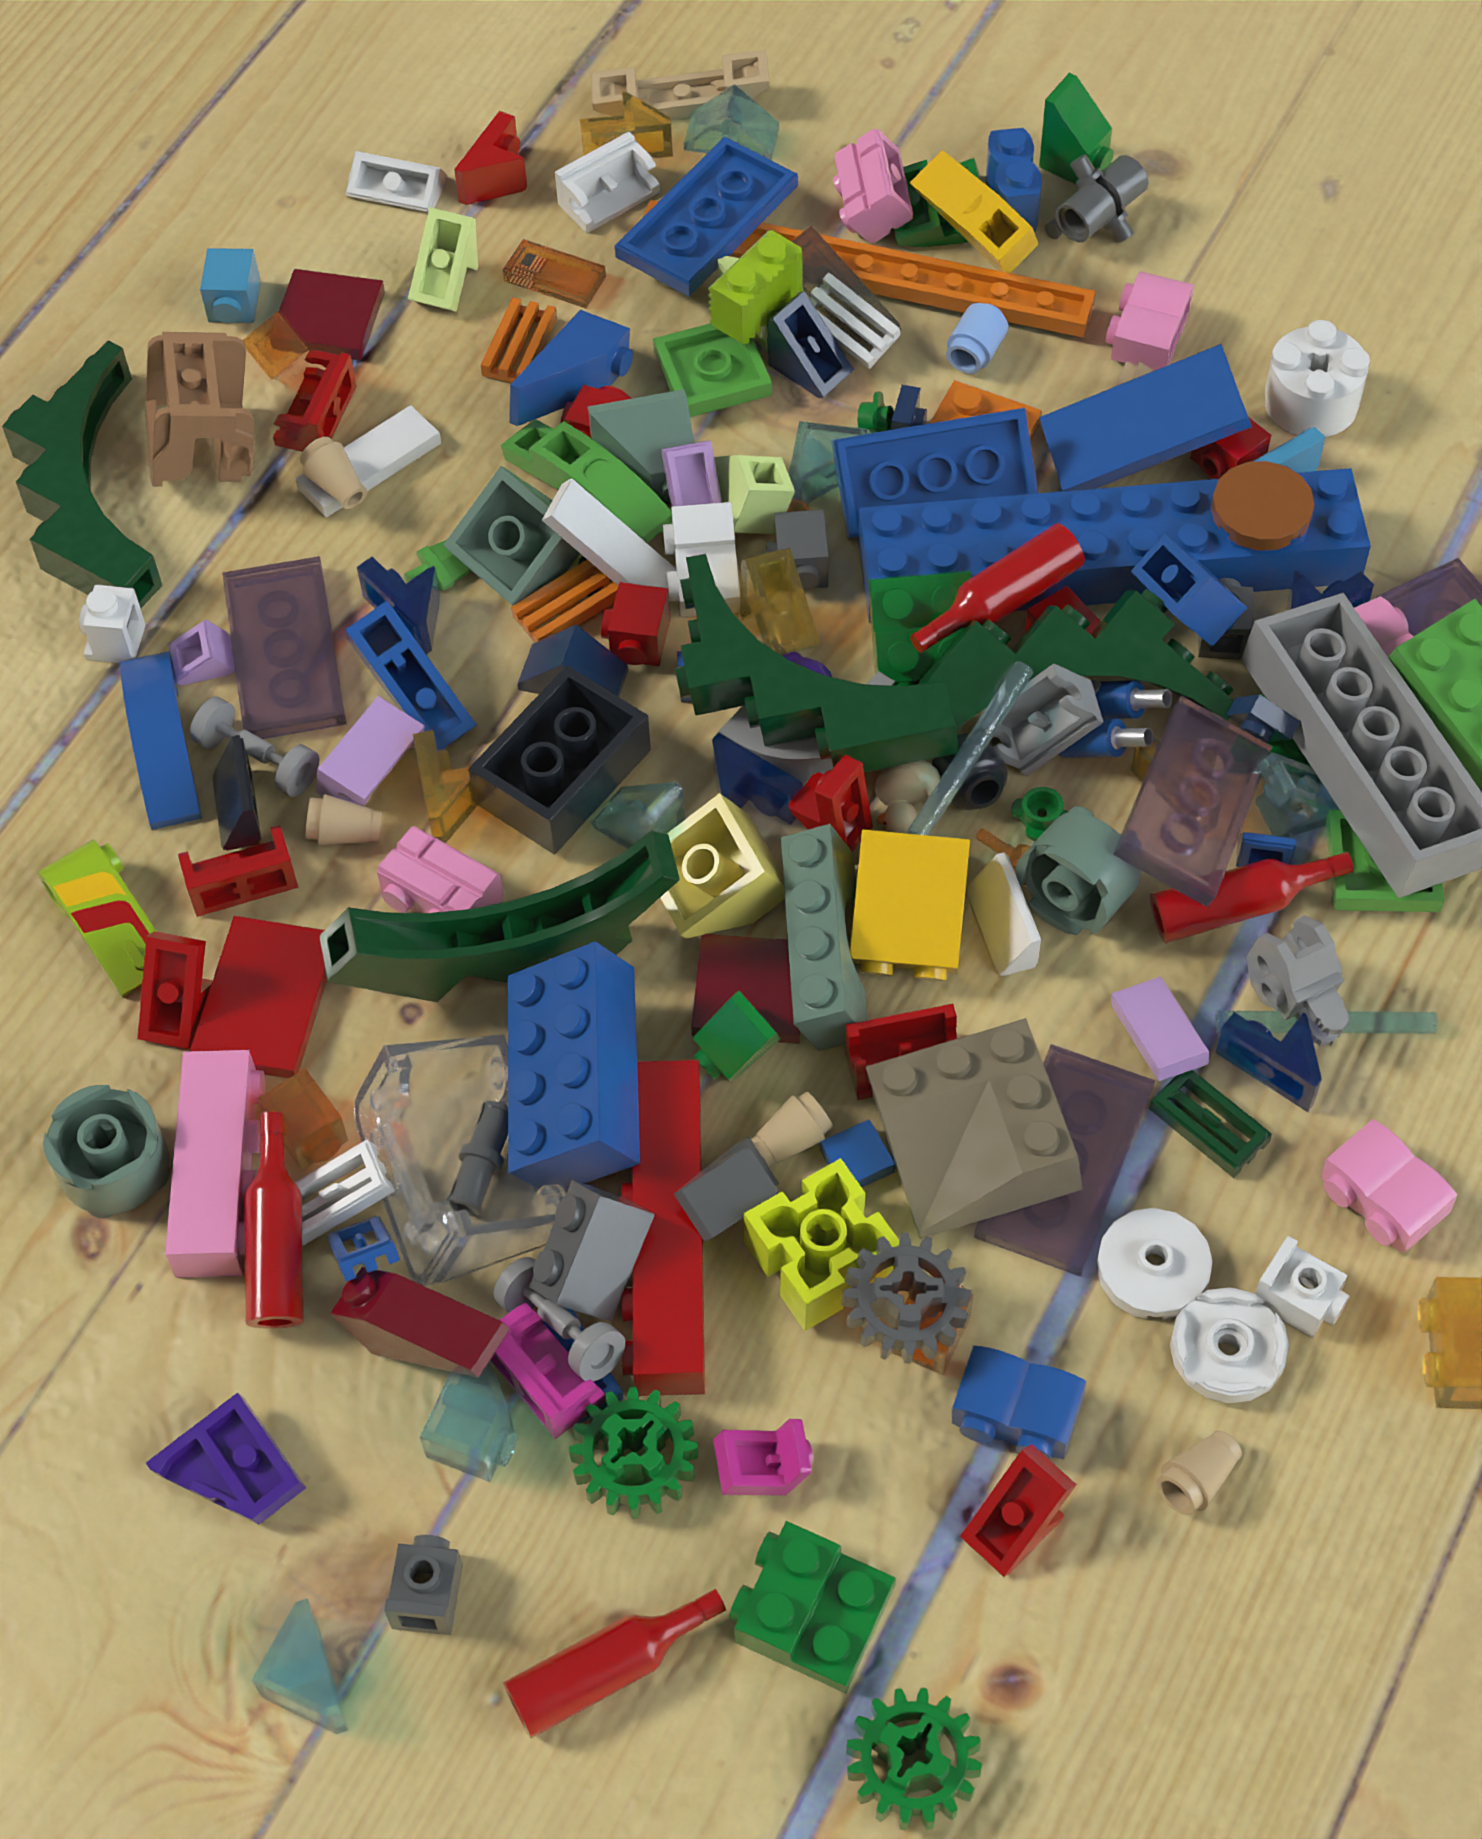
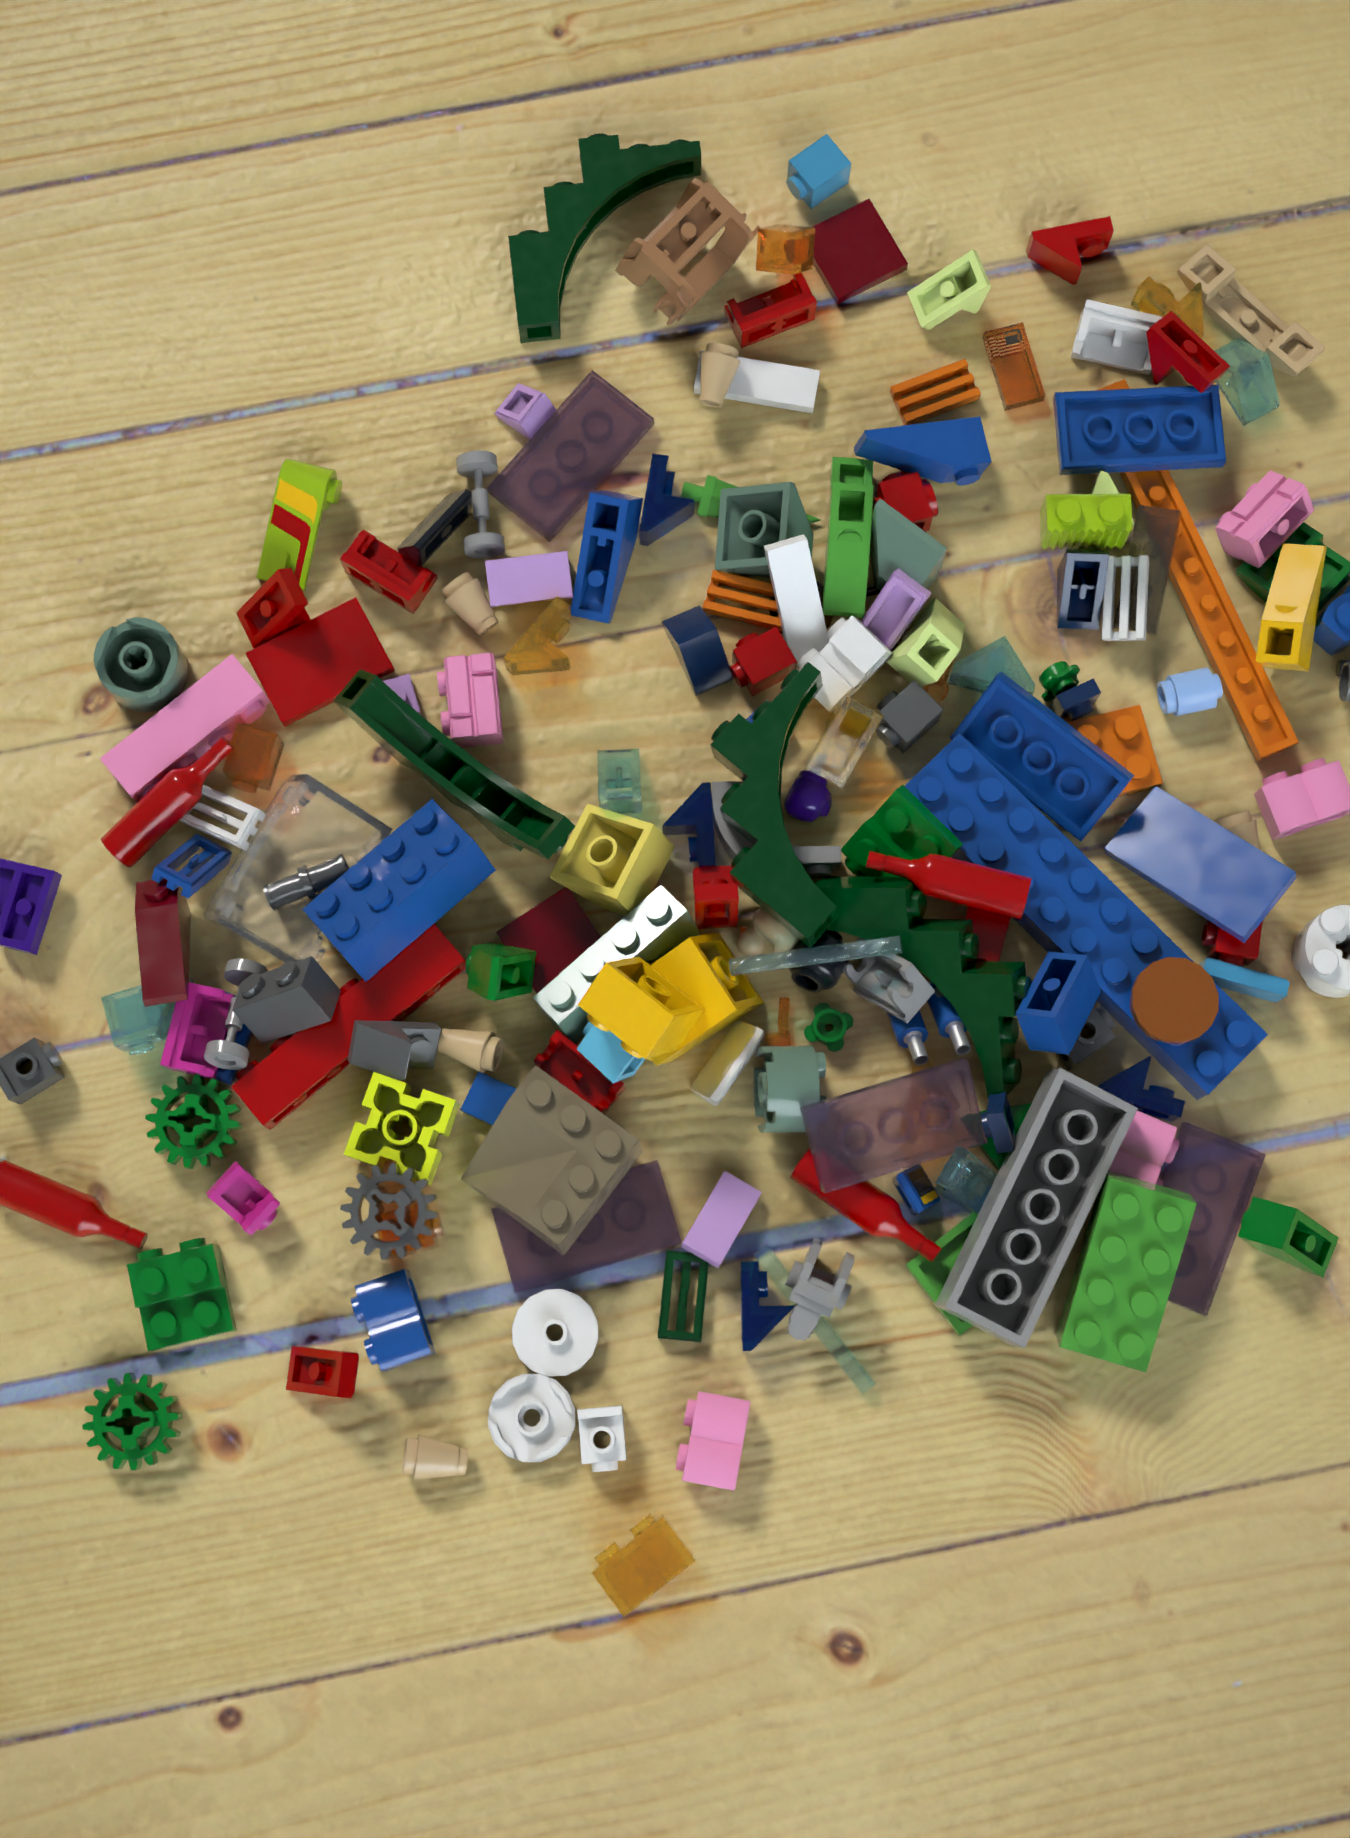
camera: 50 degrees right, 20 degrees up
(111, 624) = (492, 334): white brick -> none
(159, 740) = (443, 437): blue slope -> none
(395, 182) = (1003, 196): white slope -> none
(560, 759) = (615, 699): black brick -> none
(663, 137) = (1179, 348): none -> red slope
(711, 368) = (1009, 538): bright green plate -> none
(899, 911) = (640, 1008): none -> yellow brick
(906, 983) = (607, 1055): none -> medium azure brick

